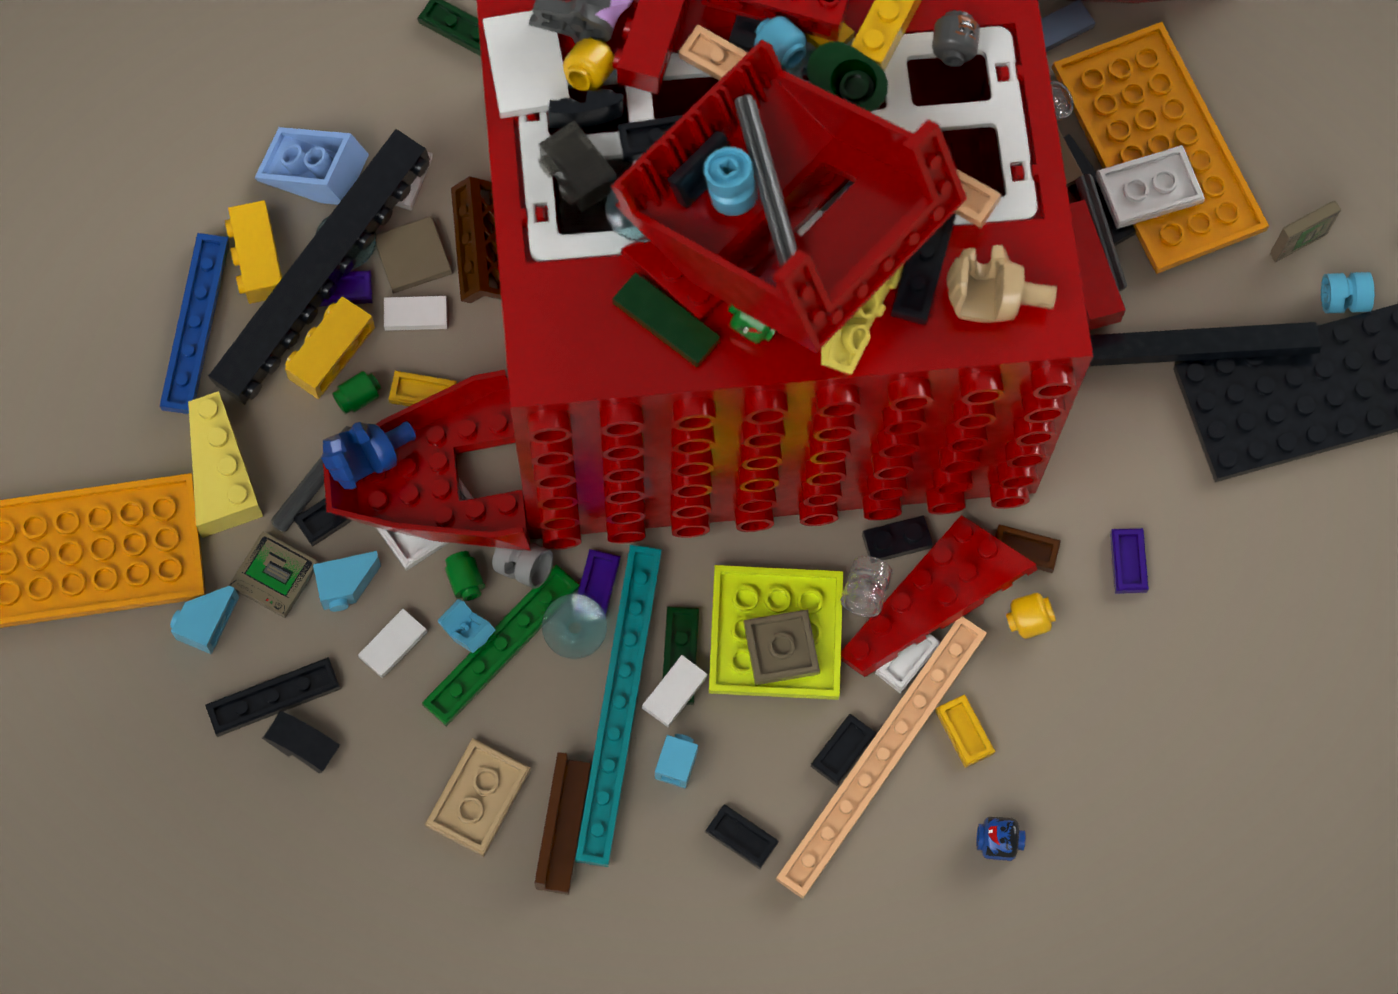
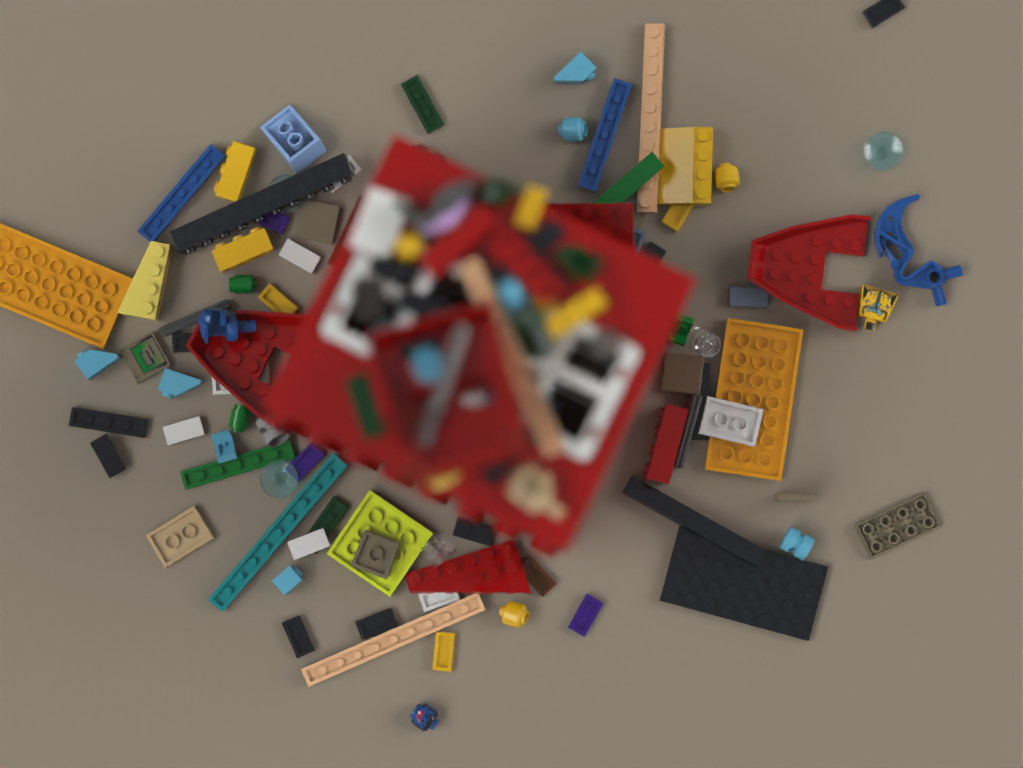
camera: 40 degrees right, 15 degrees up
(562, 825) = (212, 577): reddish brown fence -> none

